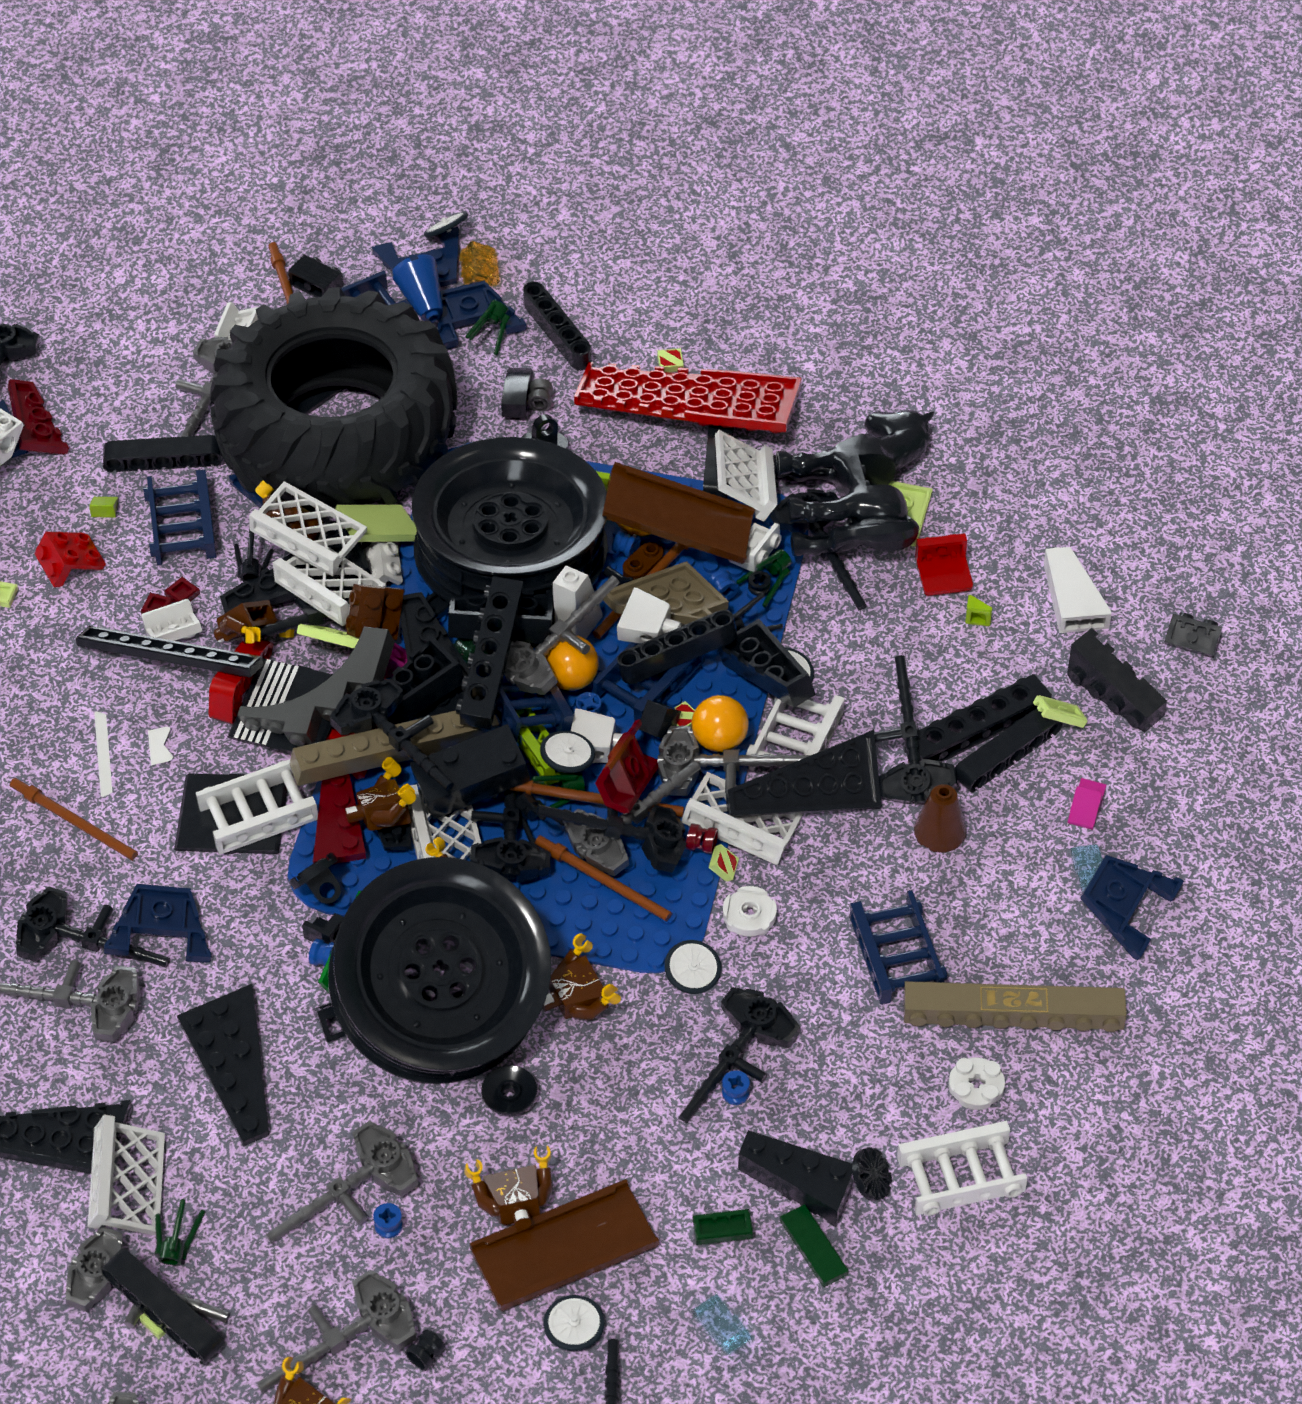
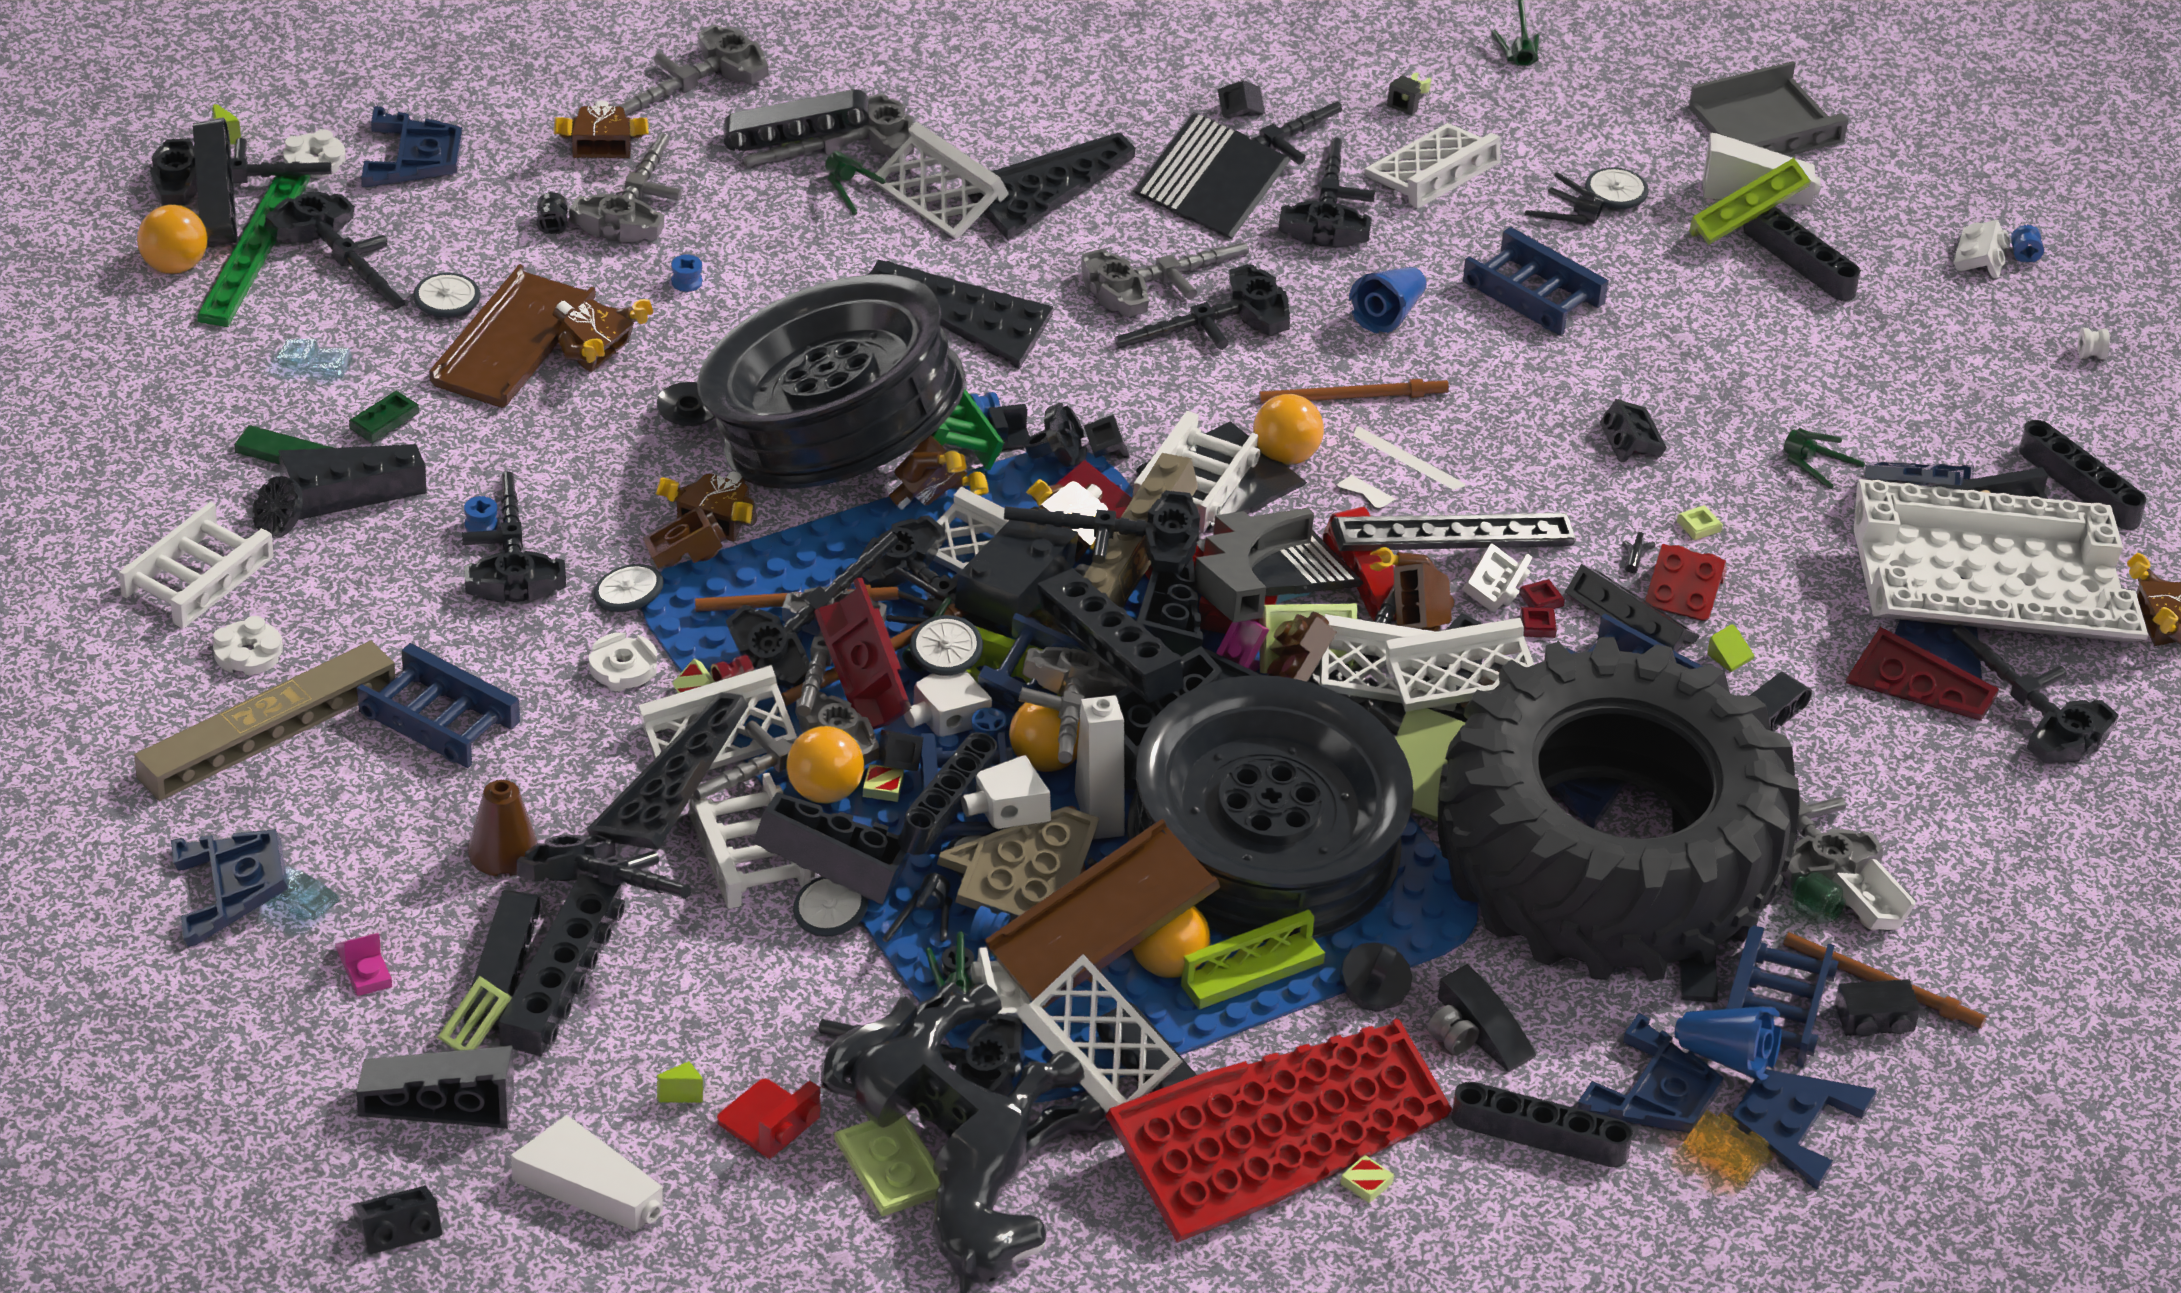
camera: 135 degrees right, 10 degrees down
(66, 597) = (1636, 552): none -> black bar
(127, 559) = (1613, 599): none -> black fence
(160, 912) = (1165, 363): dark blue wing -> none
(162, 799) = (1288, 429): none -> light orange piece
(277, 873) = (1106, 436): none -> black panel
(380, 1157) = (734, 301): flat silver bar -> none
(446, 224) = (1828, 1160): wheel -> none
(495, 313) = (1616, 1070): dark green plant -> none
(631, 964) = (690, 534): none -> reddish brown plate

